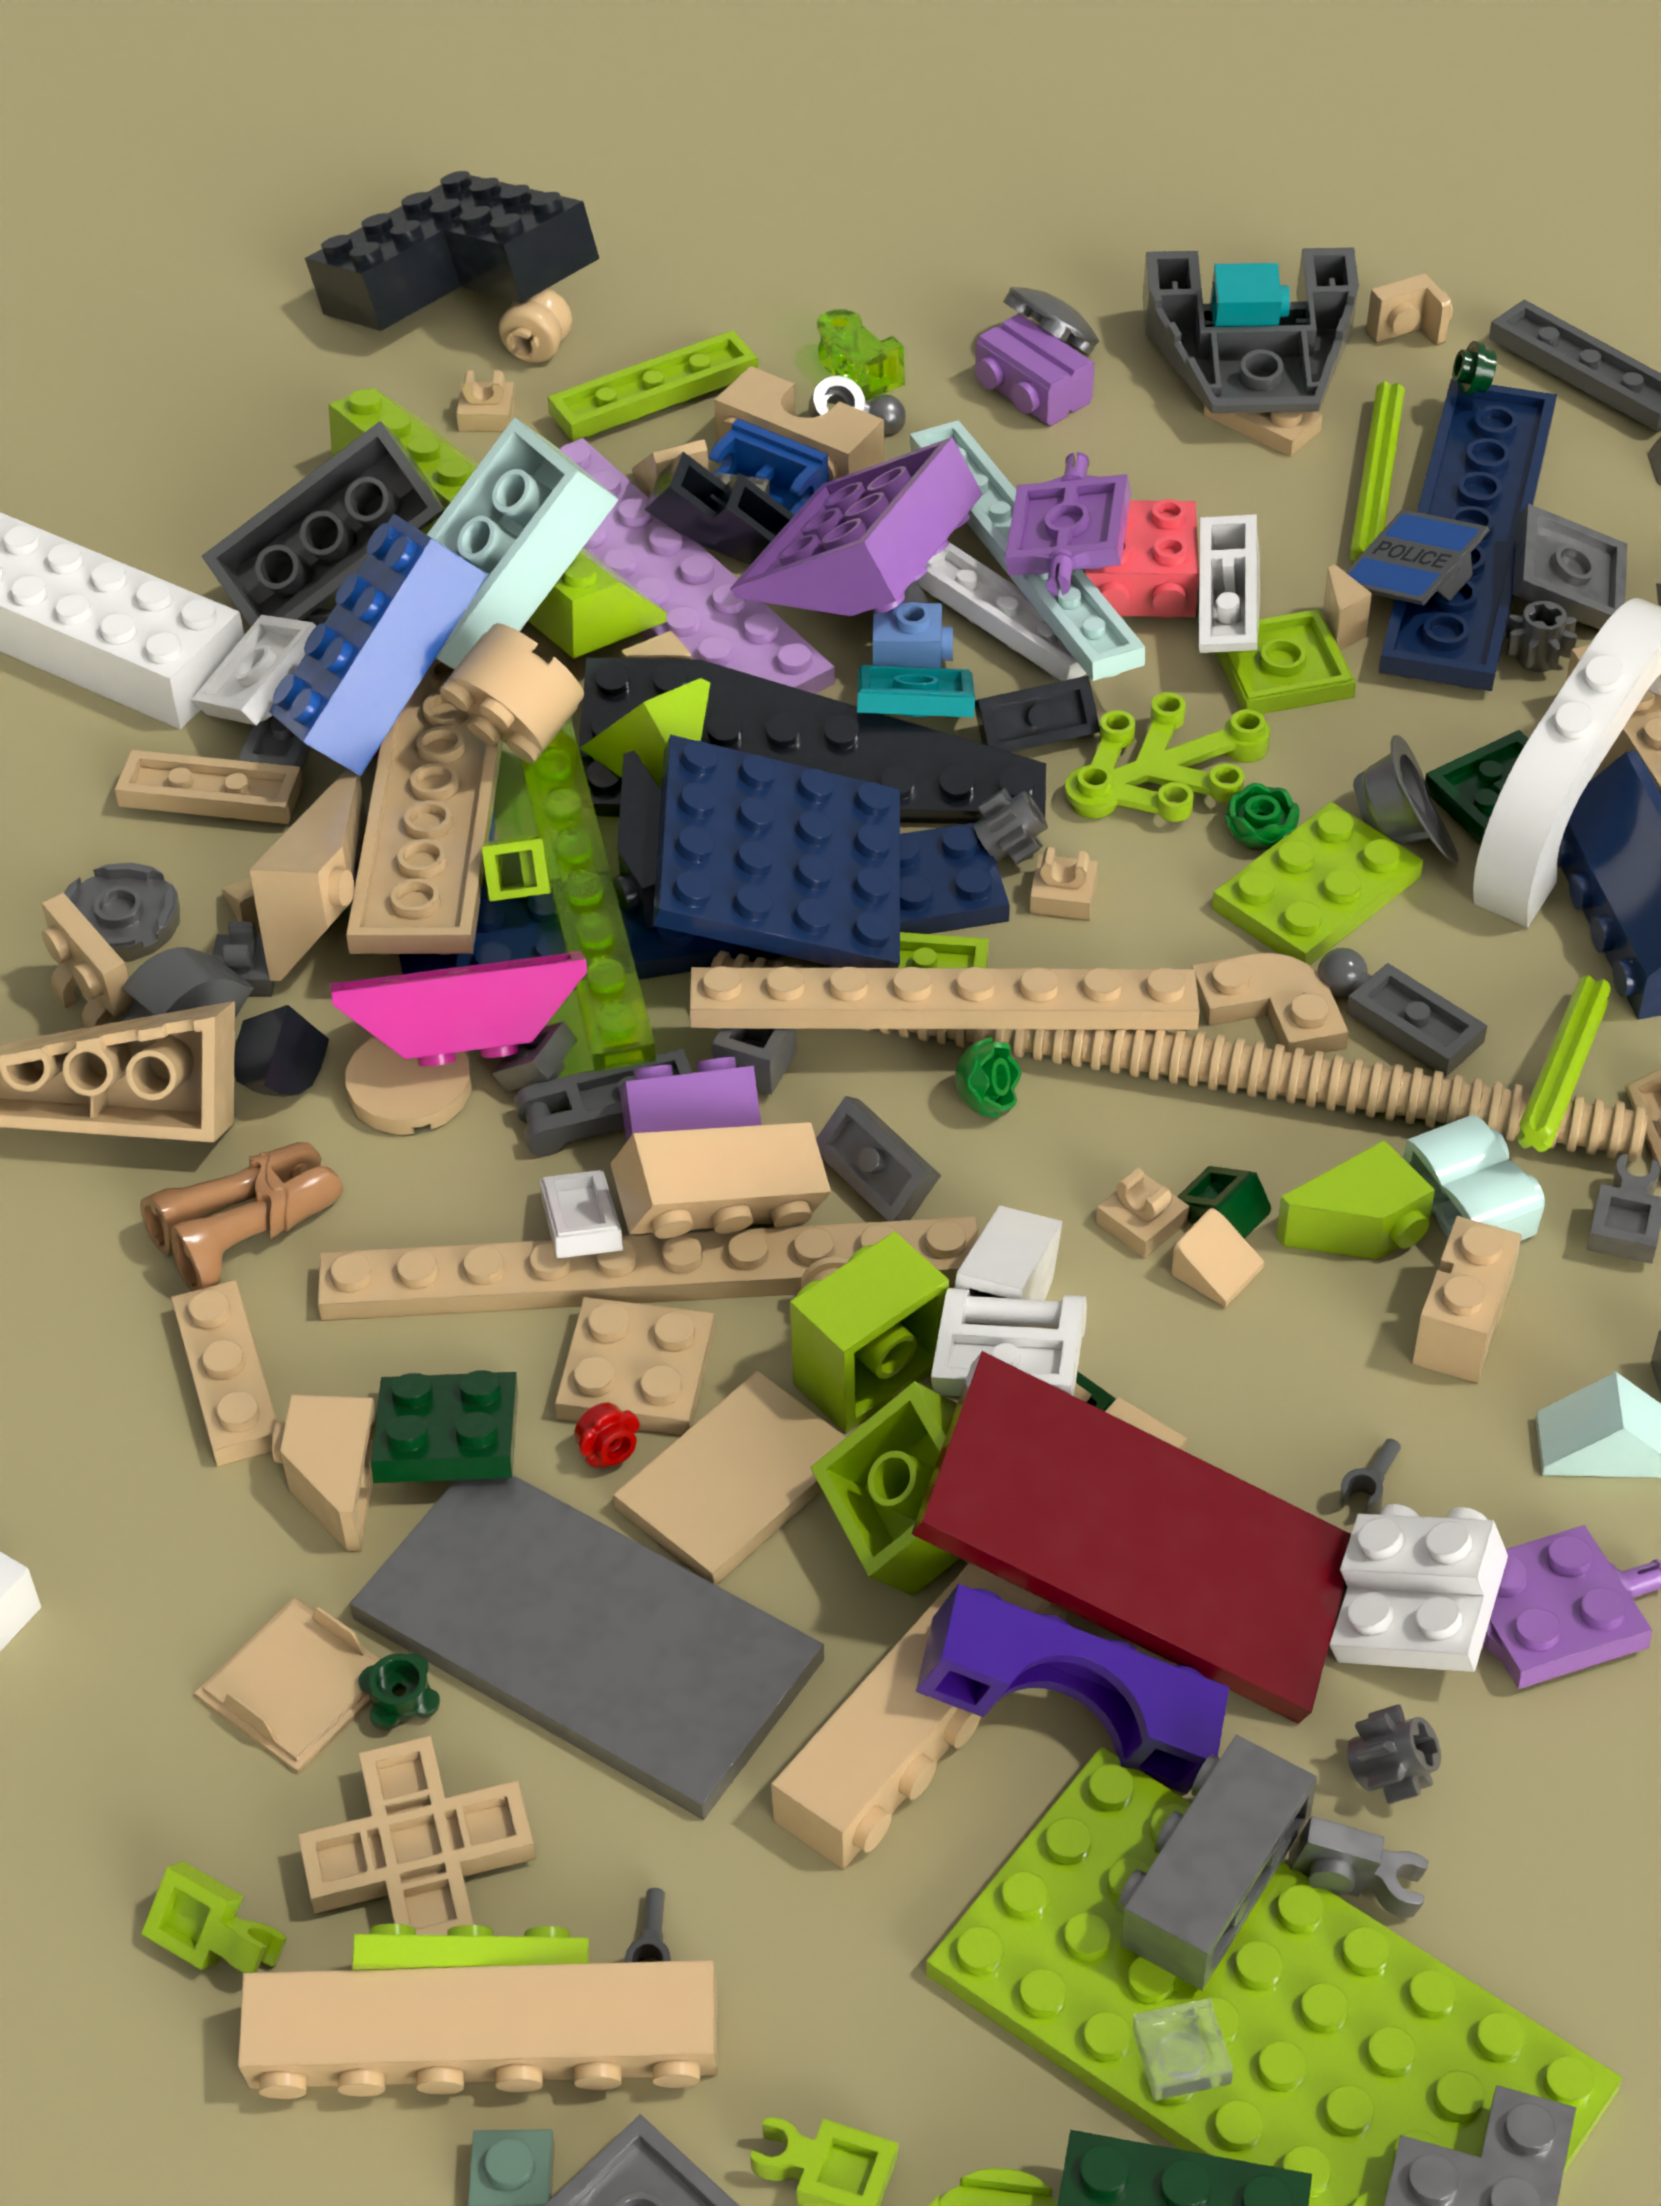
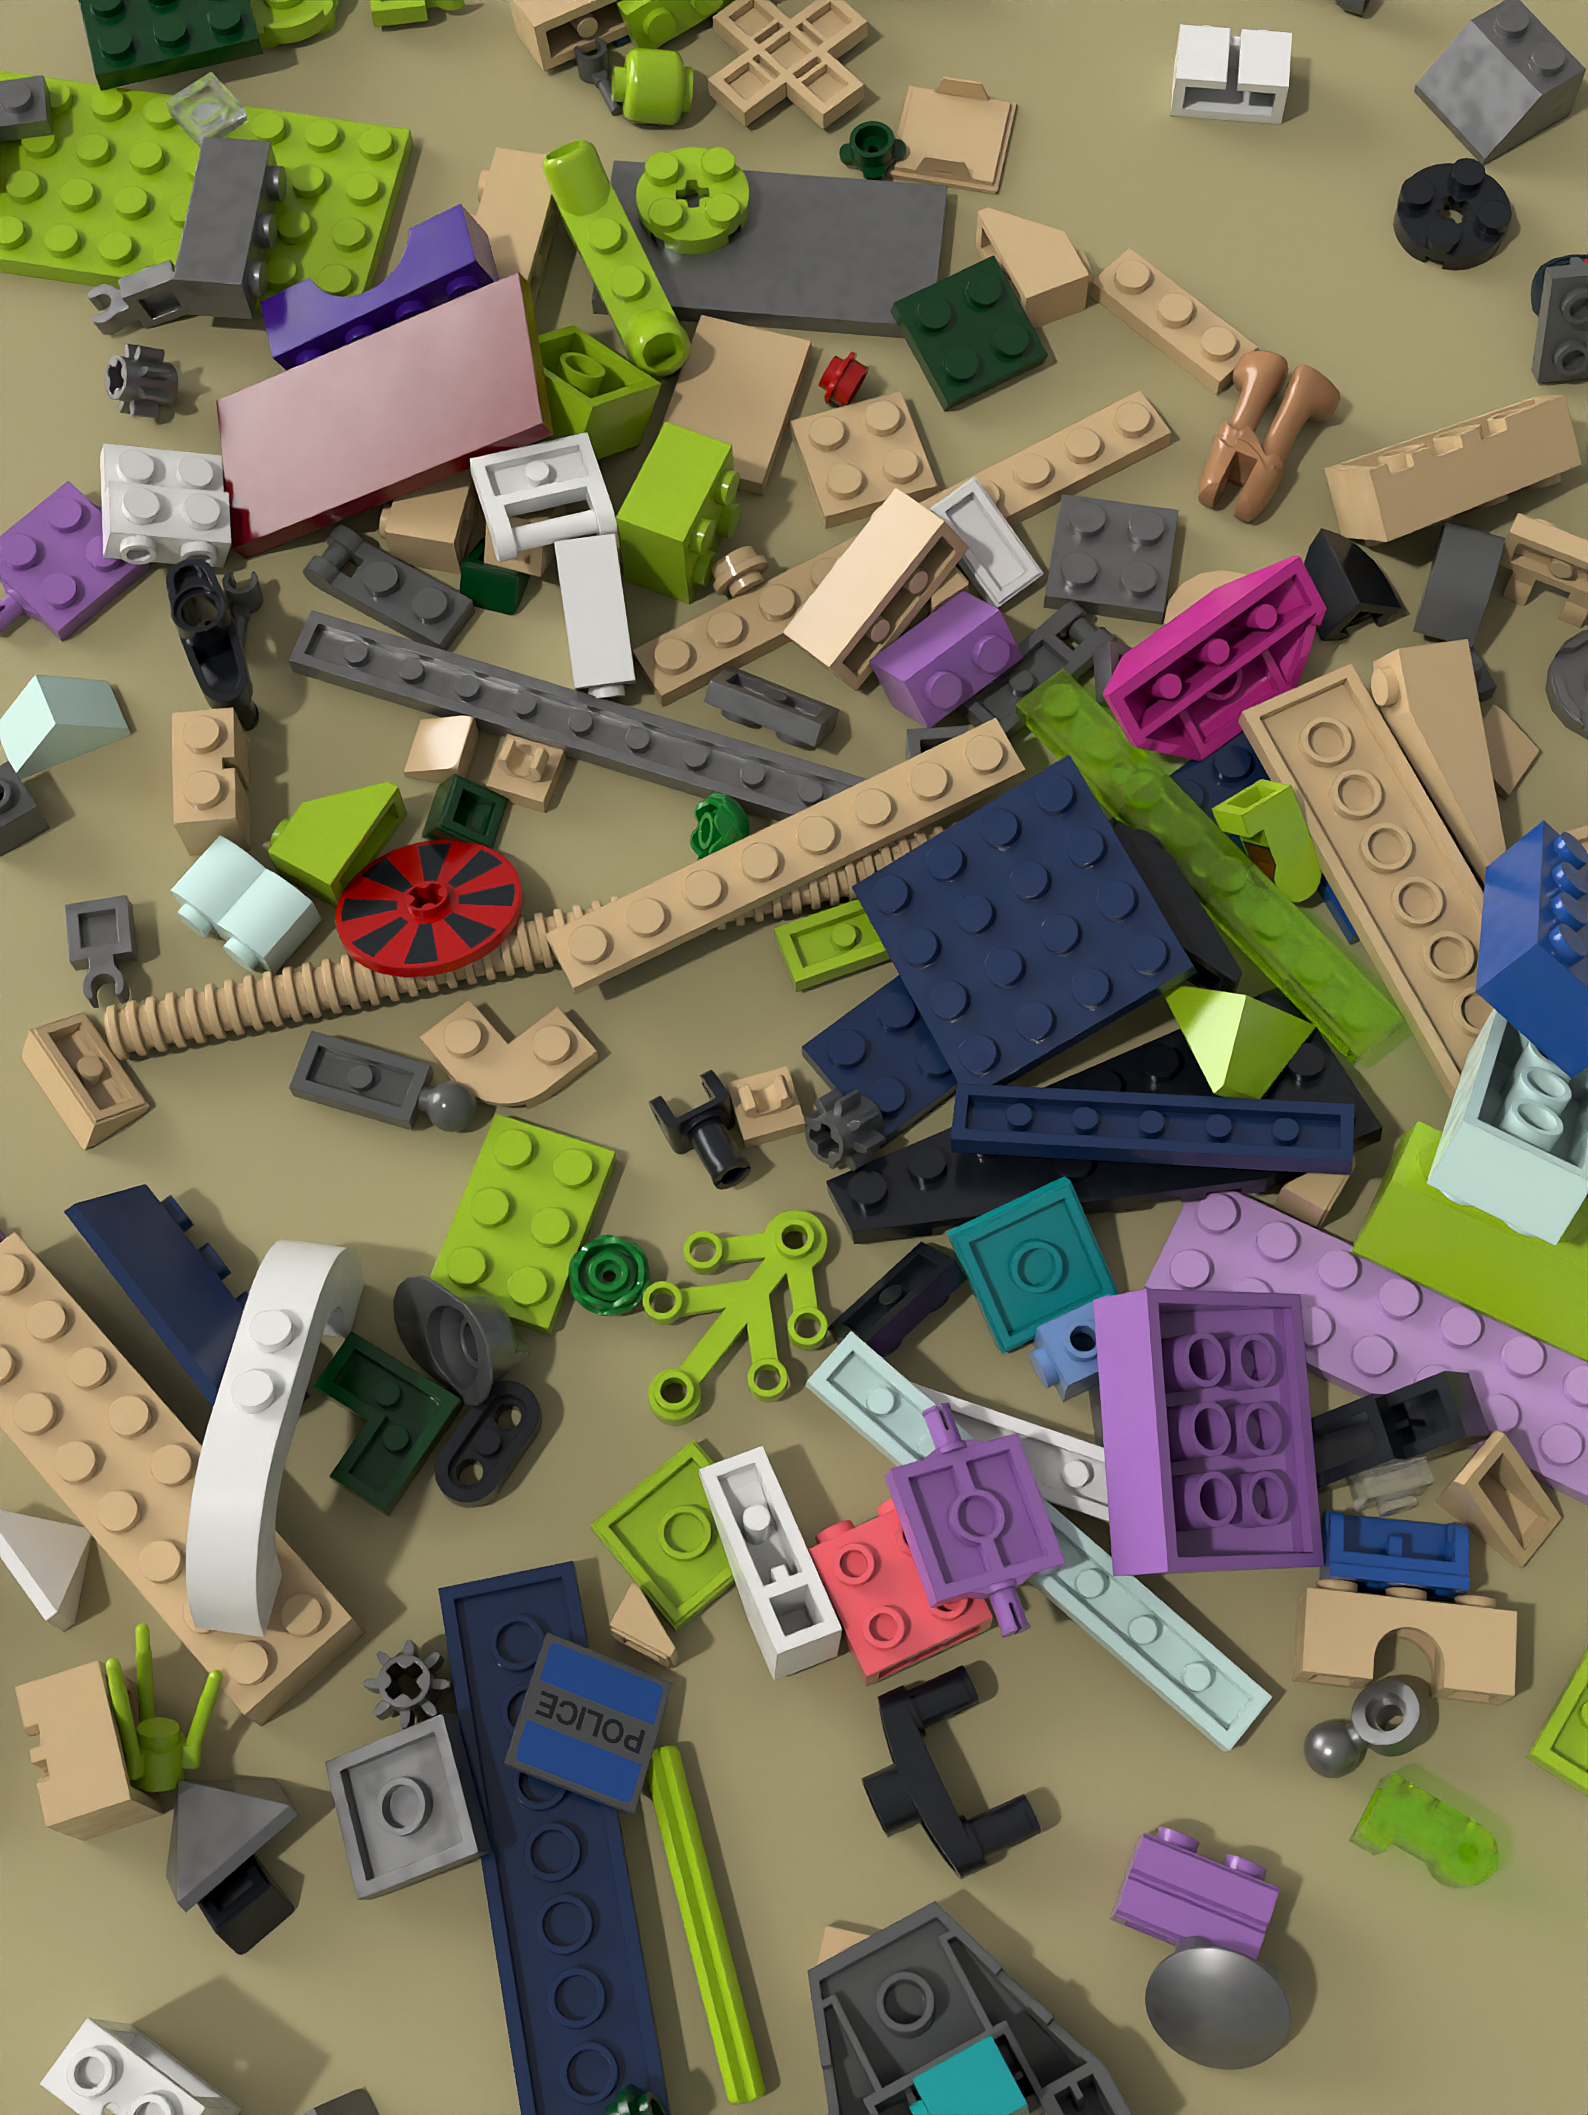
camera: 155 degrees right, 20 degrees up
(462, 1177) = (1111, 558): none -> flat silver plate
(513, 692) = (1386, 961): tan brick -> none
(602, 1870) = (653, 87): none -> lime head
(639, 1656) = (687, 172): none -> lime plate
(772, 700) = (1154, 1128): none -> dark blue plate
(779, 1626) = (615, 260): none -> lime plate
(1092, 1237) = (562, 718): none -> flat silver plate
(1127, 873) = (707, 1132): none -> black piece
(1183, 1402) = (389, 590): none -> dark grey plate
(1191, 473) = (912, 1787): none -> black connector
(1302, 1060) = (429, 908): none -> red piece
(1419, 1409) = (213, 648): none -> black connector
(1432, 737) = (485, 1444): none -> black plate
(1563, 1064) = (195, 1049): lime axle -> none

